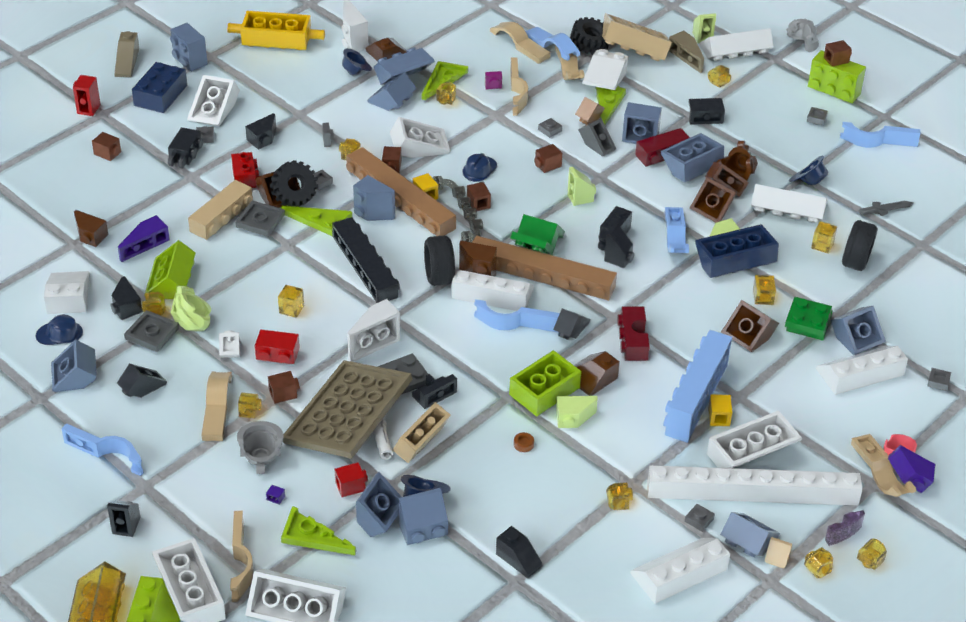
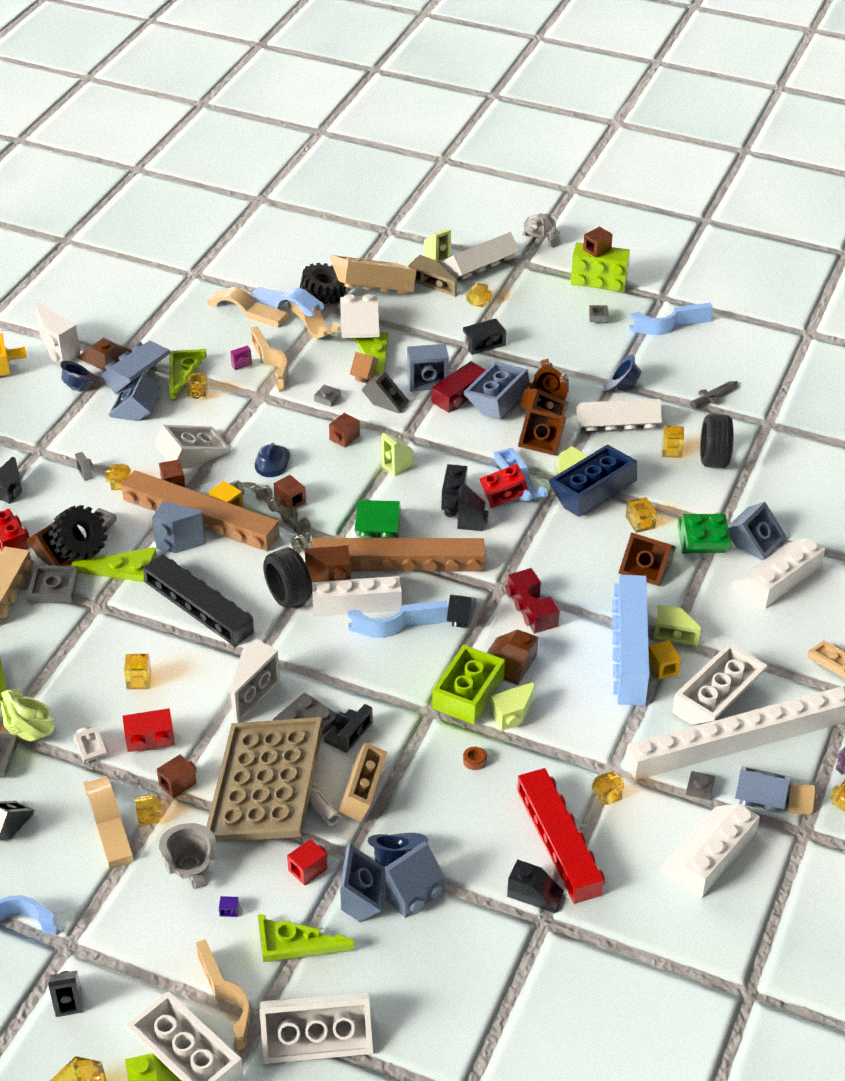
camera: 20 degrees left, 0 degrees up
(559, 520) = (560, 836): none -> red brick
(657, 235) = (503, 485): none -> red brick
(744, 386) = (676, 626): none -> yellowish green slope

